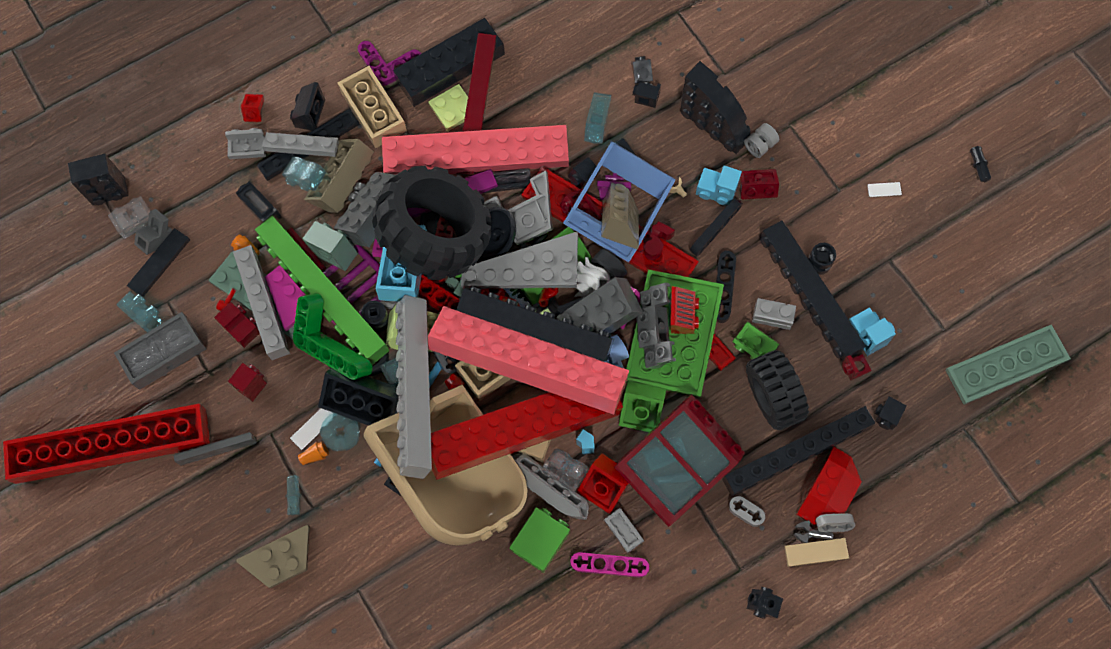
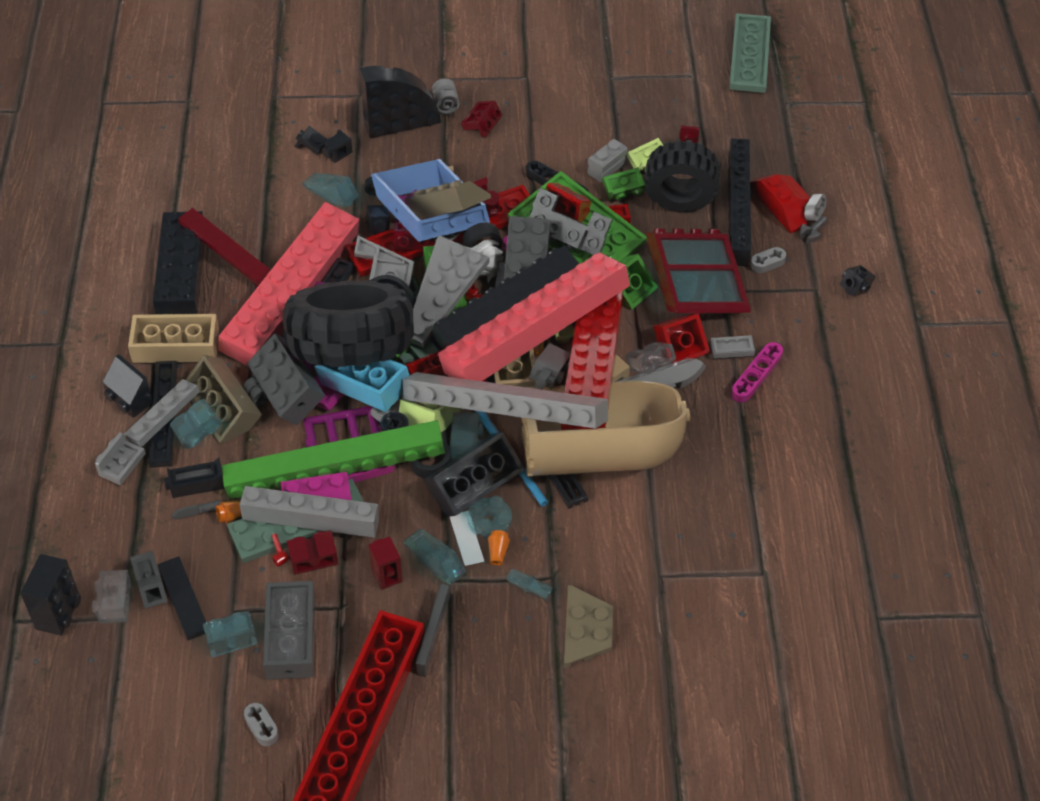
camera: 65 degrees left, 20 degrees down
(84, 378) = (265, 721): none -> light grey beam
(237, 224) = (195, 509): none -> dark grey piece
(251, 107) = (83, 437): red bracket -> none
(279, 413) = (436, 556): none -> clear light blue slope
(320, 346) = (398, 476): green beam -> none
(330, 245) = (296, 427): sand green brick -> none
(387, 69) = (110, 317): magenta beam -> none
(450, 107) = (225, 286): yellowish green plate -> none
(488, 397) = (550, 367): none -> dark grey hinge
(540, 539) = (707, 407): bright green brick -> none
(586, 442) = (634, 332): medium azure piece -> none
(716, 227) = (500, 161): black beam -> none
(719, 186) = (467, 137): medium azure brick -> none
(804, 345) = (640, 155): none -> yellowish green bracket
(812, 291) = (602, 129): black brick -> none
(816, 552) = (831, 234): tan tile -> none
(822, 257) = (581, 109): black wheel -> none
(872, 330) = (667, 112): medium azure brick -> none
(884, 189) = (547, 52): white sticker -> none
(889, 413) = (744, 130): black brick -> none

